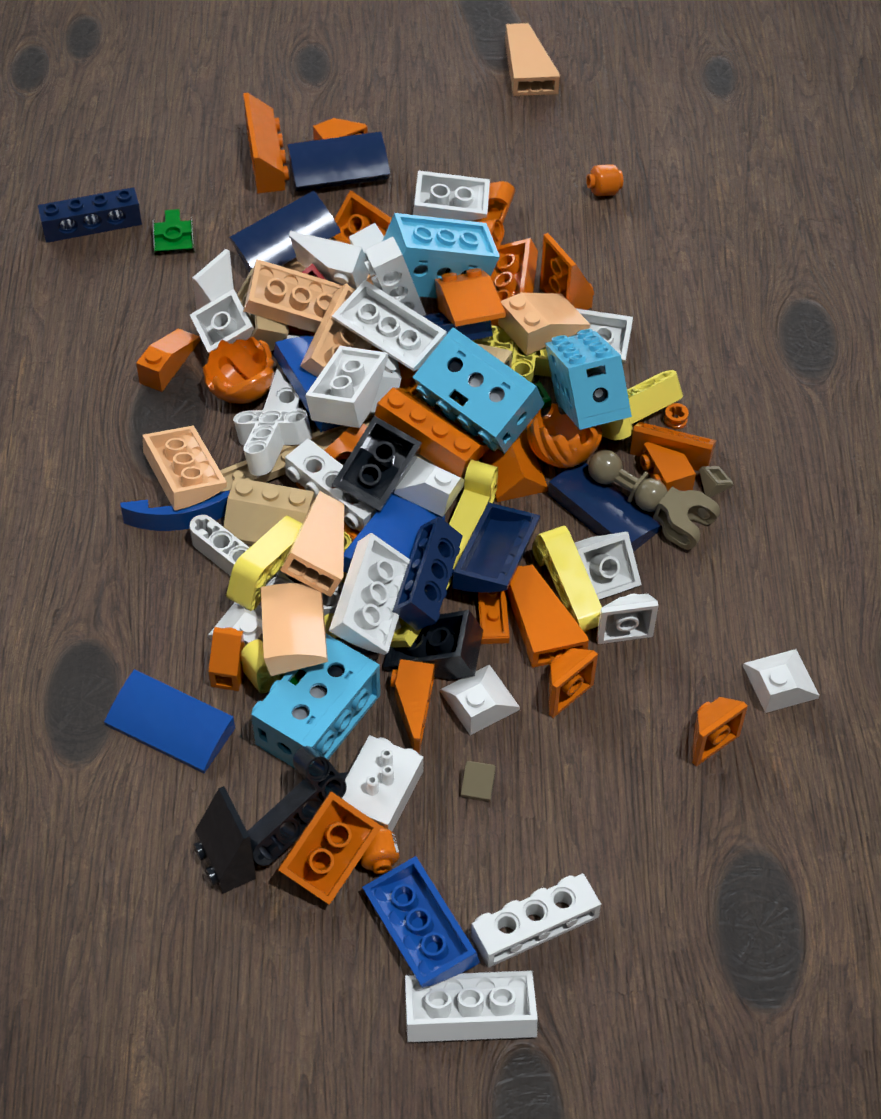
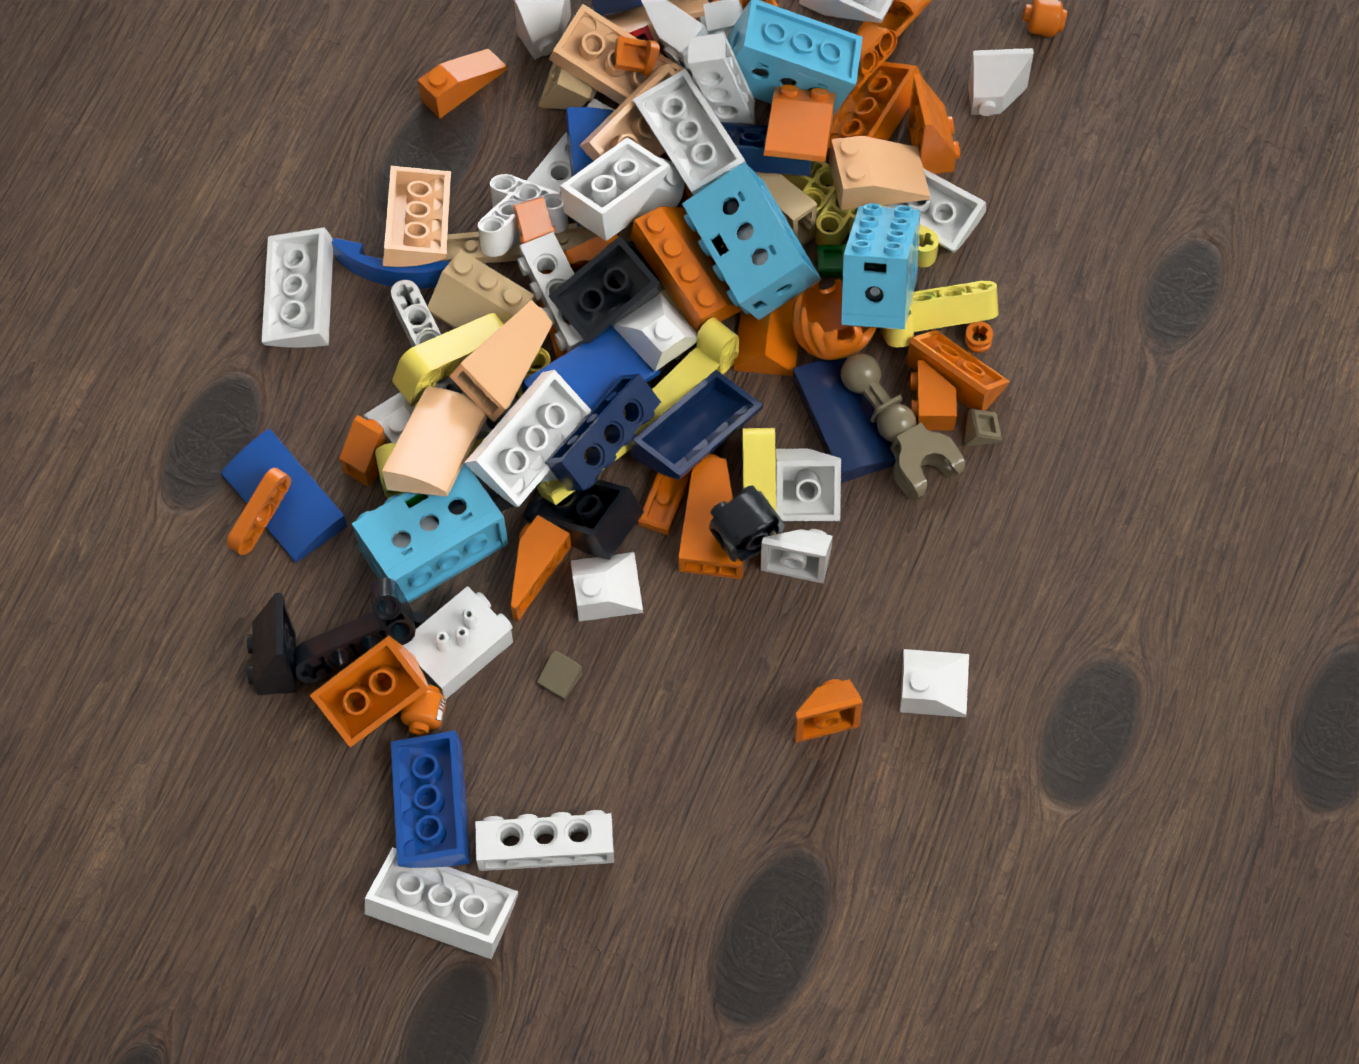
camera: 25 degrees right, 10 degrees up
(104, 555) = (298, 289): none -> white slope
(156, 739) = (258, 511): none -> orange beam
(222, 320) = (525, 67): white slope -> none
(239, 370) = (522, 125): orange piece -> none
(287, 433) = (532, 219): none -> tile
(315, 286) = (635, 55): none -> orange tile
(570, 678) = (702, 600): orange slope -> none
(580, 603) = (744, 523): none -> black brick
(594, 230) = (997, 79): none -> white slope

